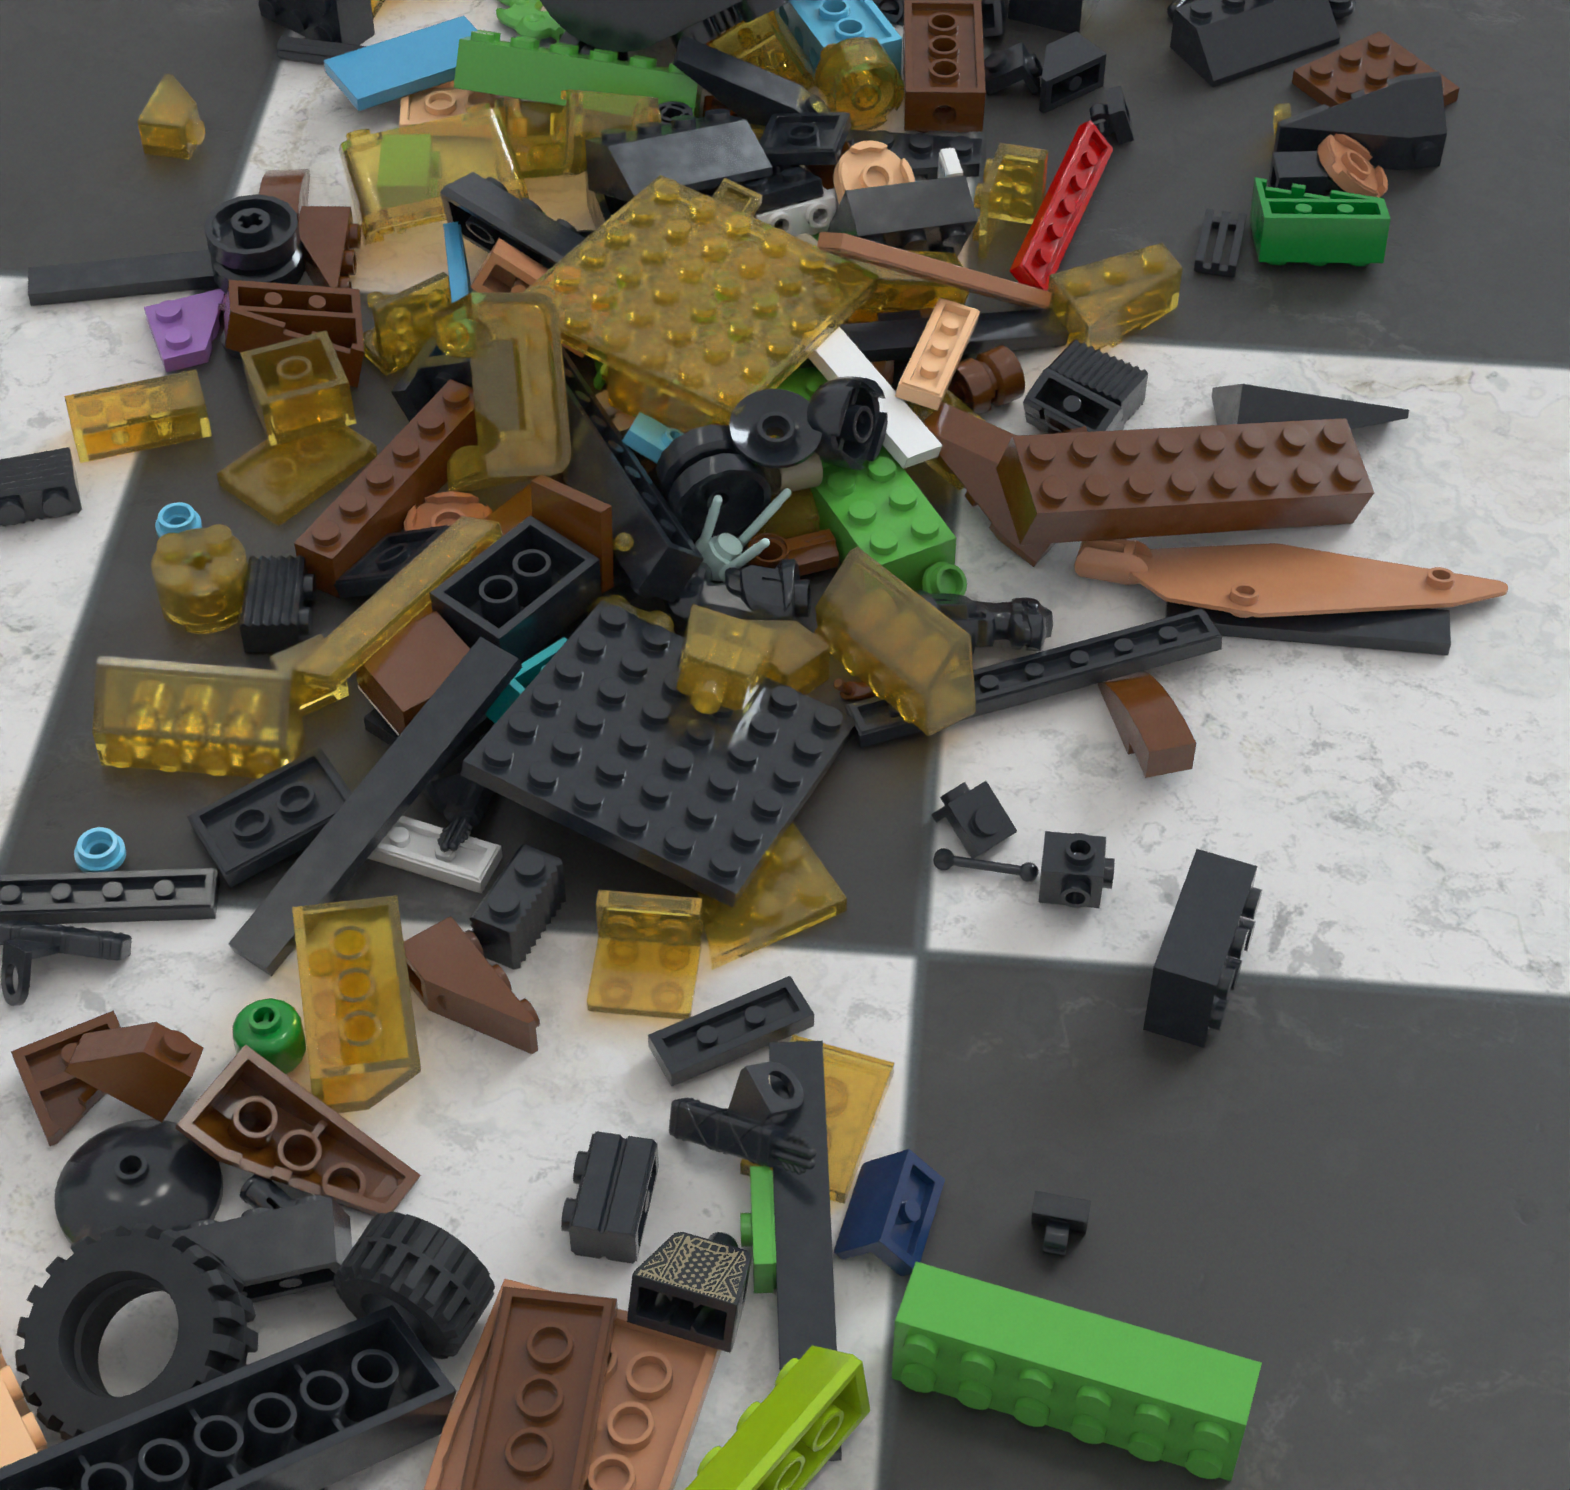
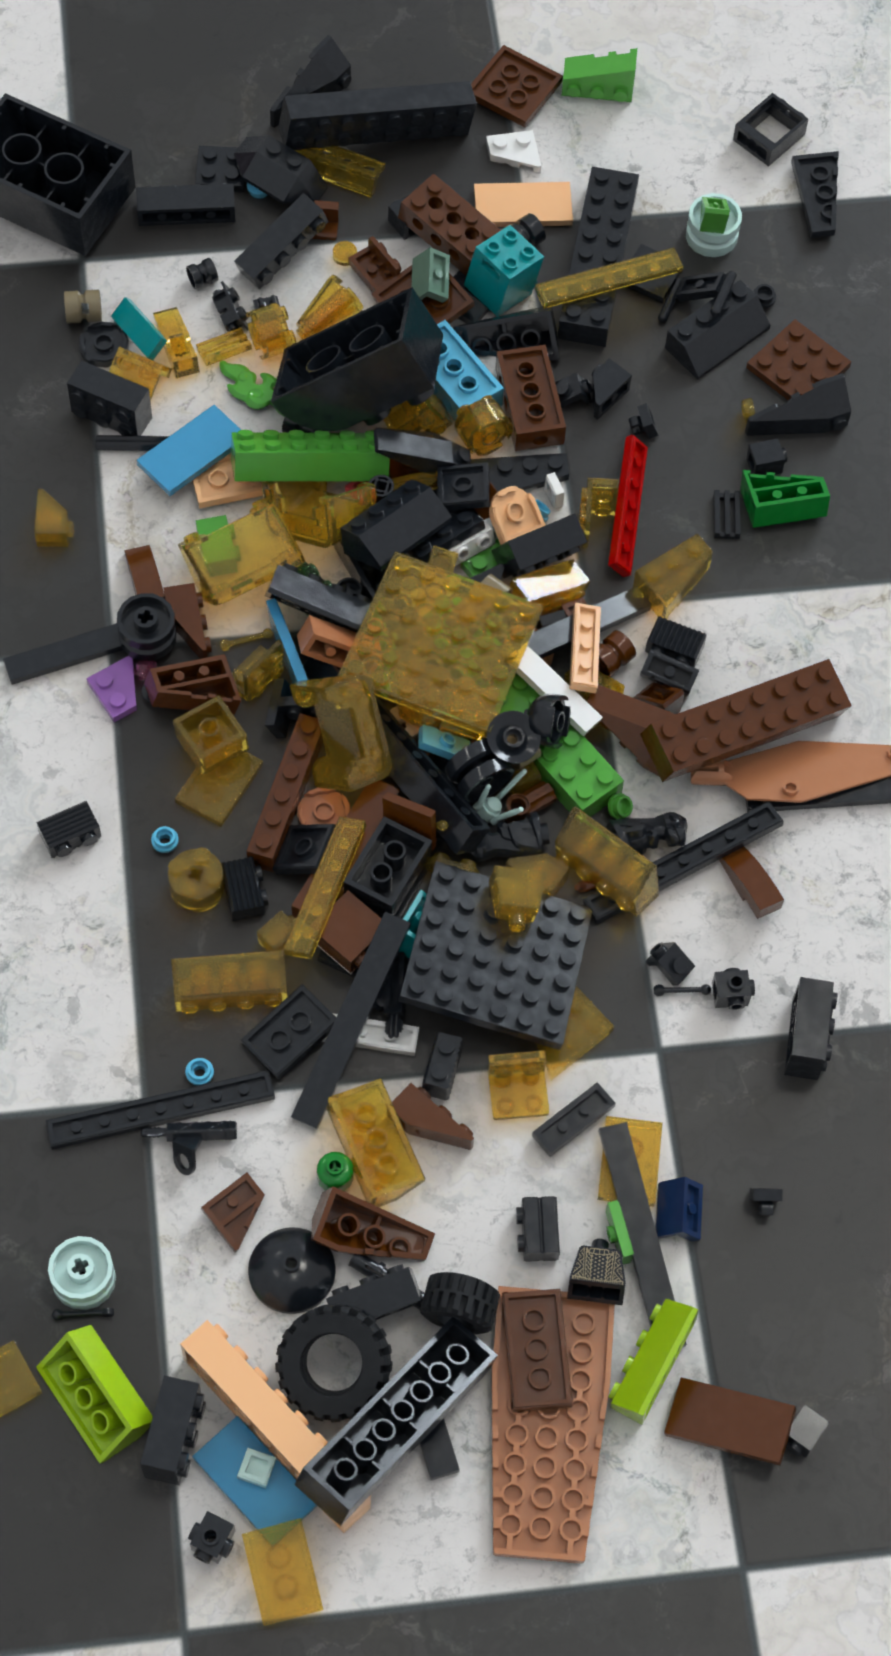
camera: 15 degrees left, 15 degrees up
(137, 1065) = (275, 1204): reddish brown slope -> none
(138, 416) = (114, 764): clear yellow brick -> none
(746, 1125) = (600, 1177): black piece -> none
(933, 270) = (571, 588): nougat tile -> none
(1073, 1371) = (792, 1284): bright green brick -> none
(1262, 404) = (784, 653): black wedge -> none
(1350, 167) = (797, 445): nougat tile -> none

